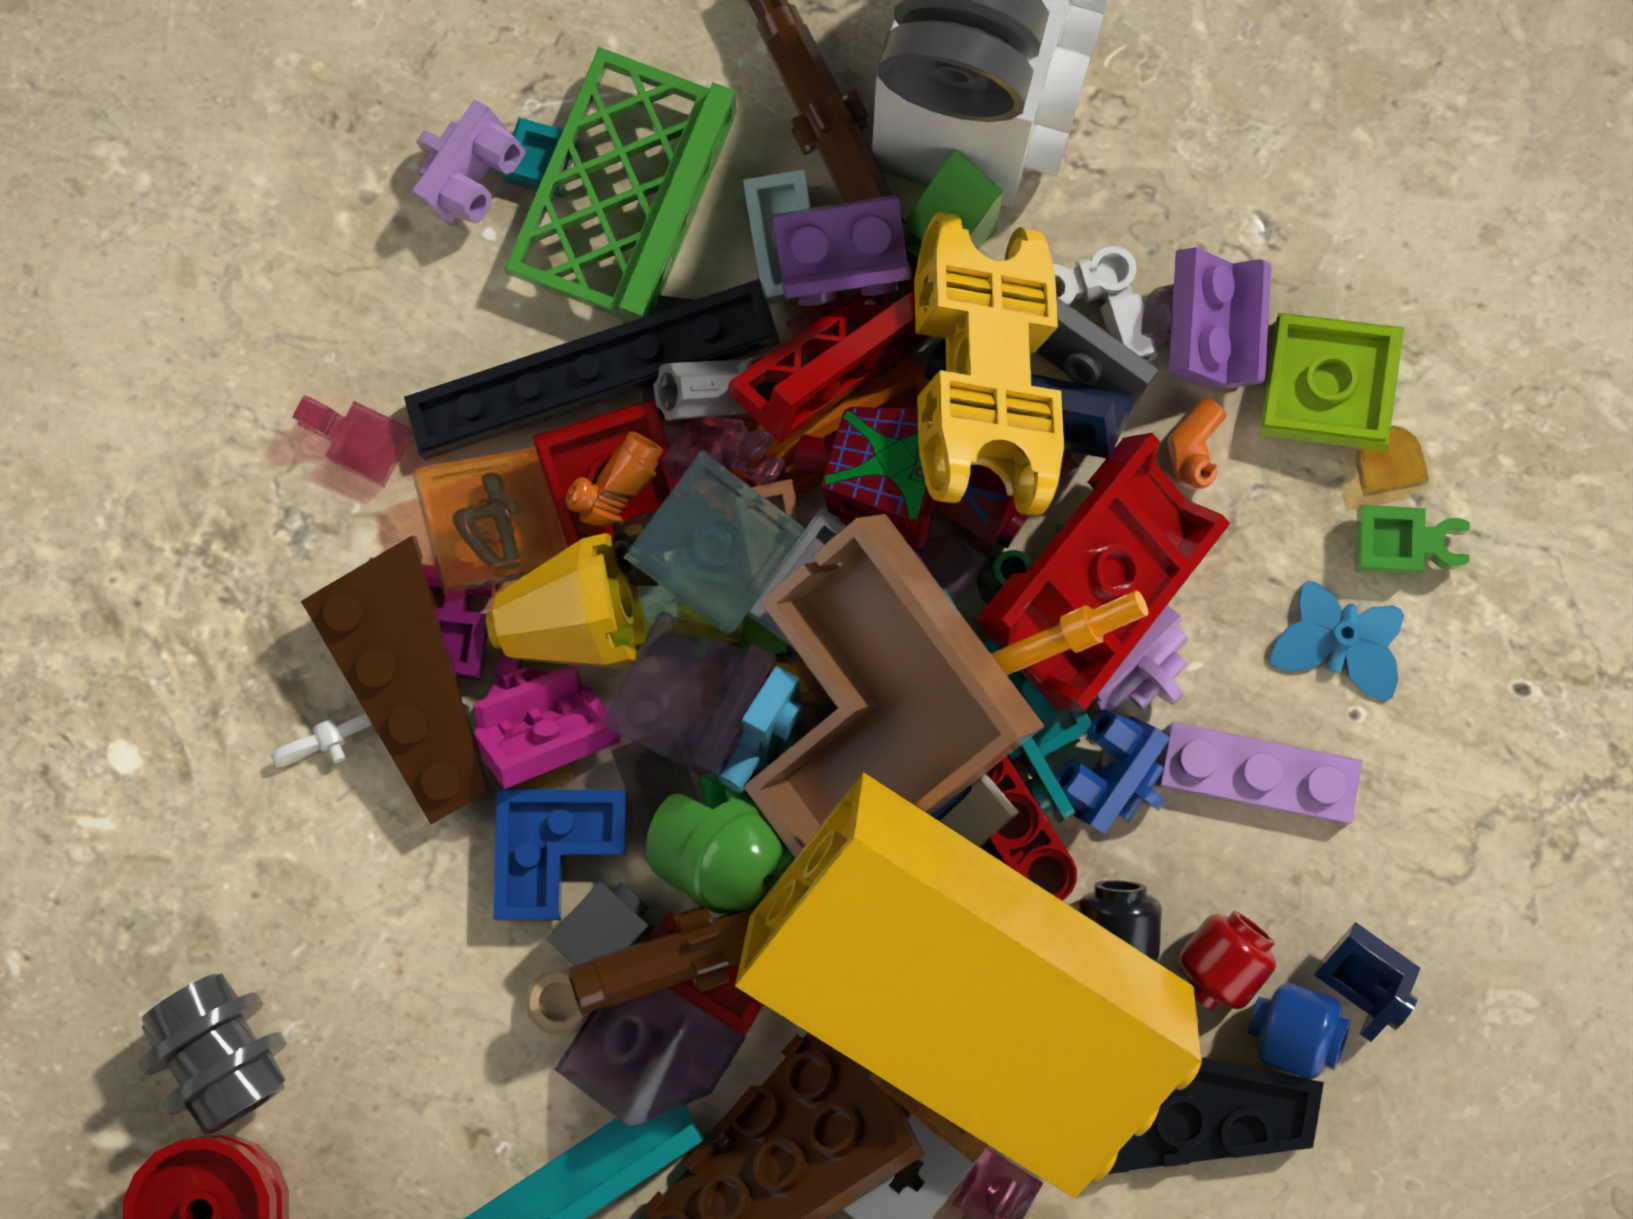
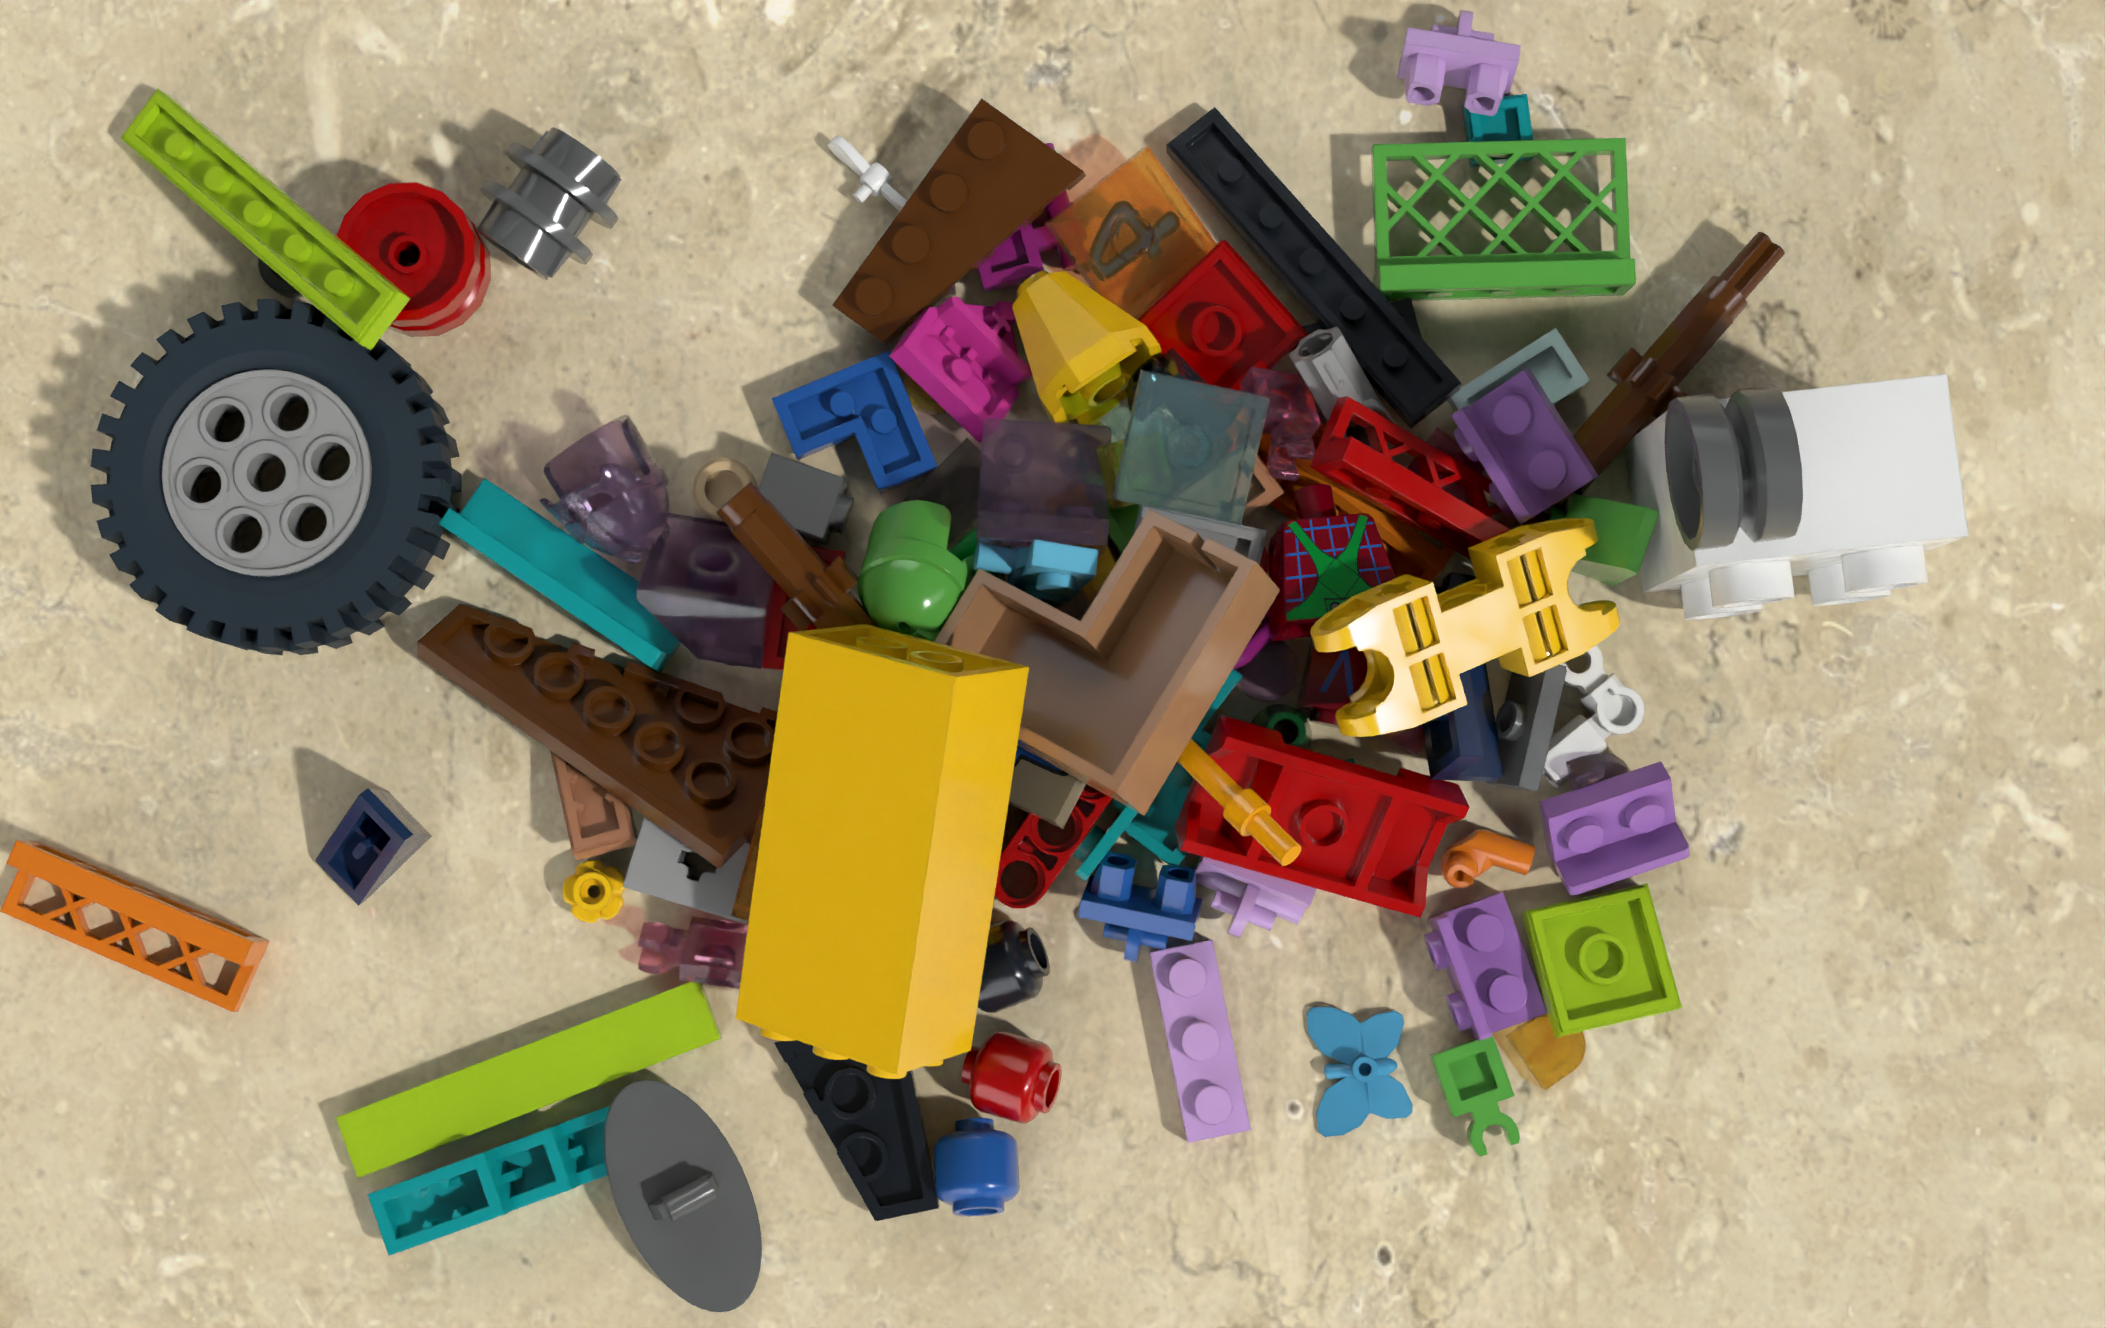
camera: 65 degrees right, 5 degrees up
(361, 441) = (1158, 87): clear pink plate -> none
(514, 1110) = (611, 491): none -> clear purple helmet
(622, 478) = (1217, 337): orange arm -> none
(1296, 487) = (1485, 966): none -> medium lavender bracket
(1371, 978) = (1052, 1215): dark blue bracket -> none

